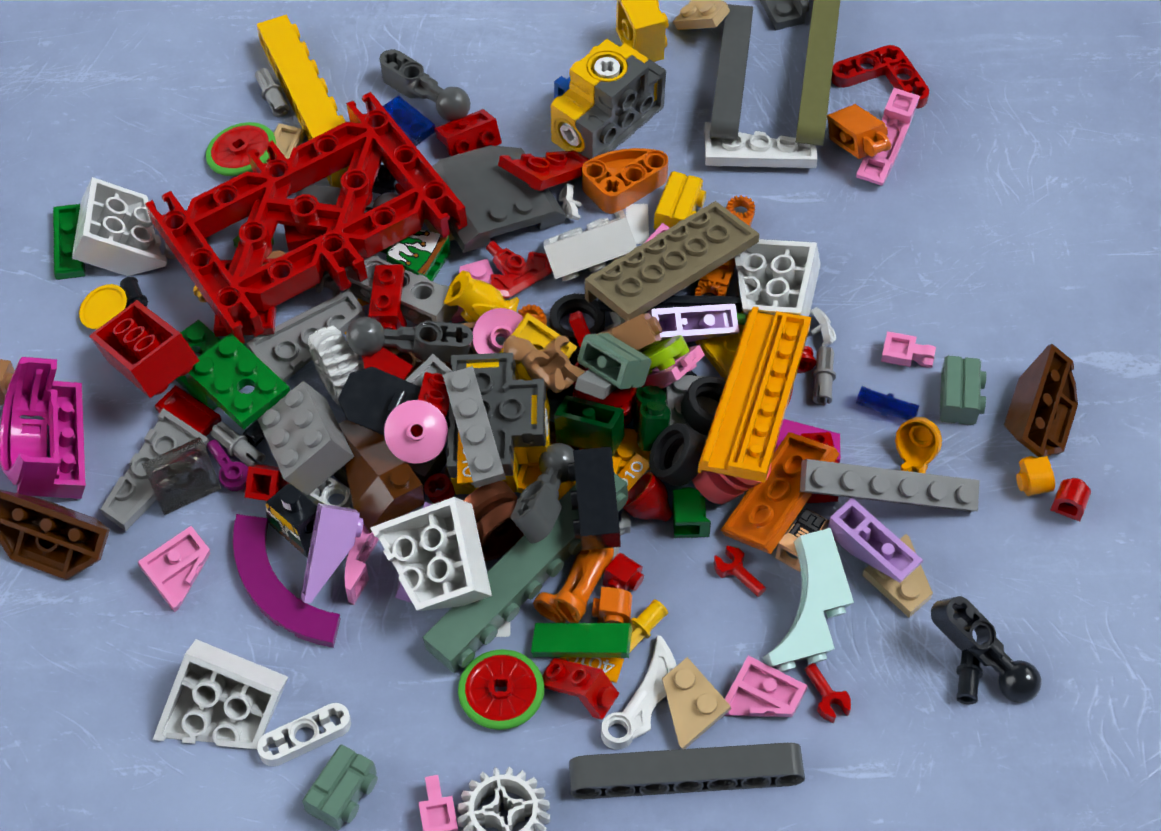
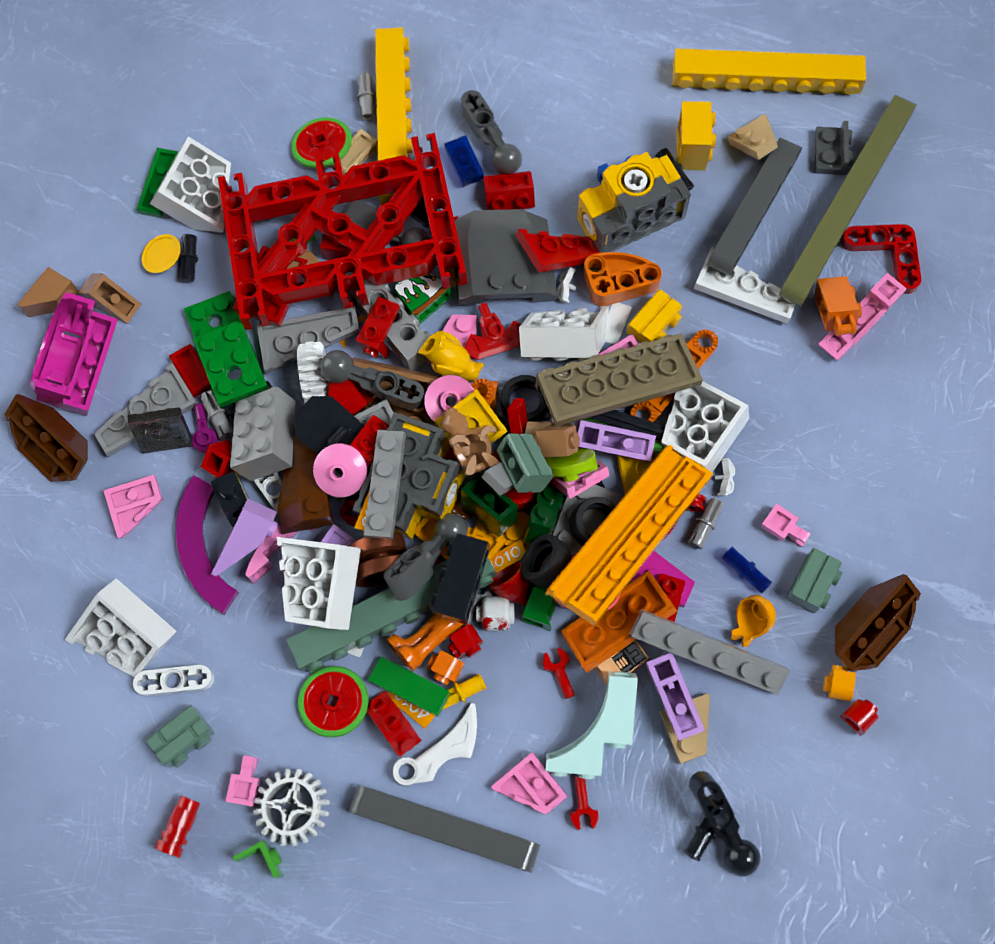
camera: 25 degrees right, 15 degrees up
(70, 365) = (109, 297): none -> medium nougat slope
(144, 349) = (169, 311): red brick -> none
(643, 535) = (495, 613): none -> white head
(692, 702) = (472, 773): tan wing -> none

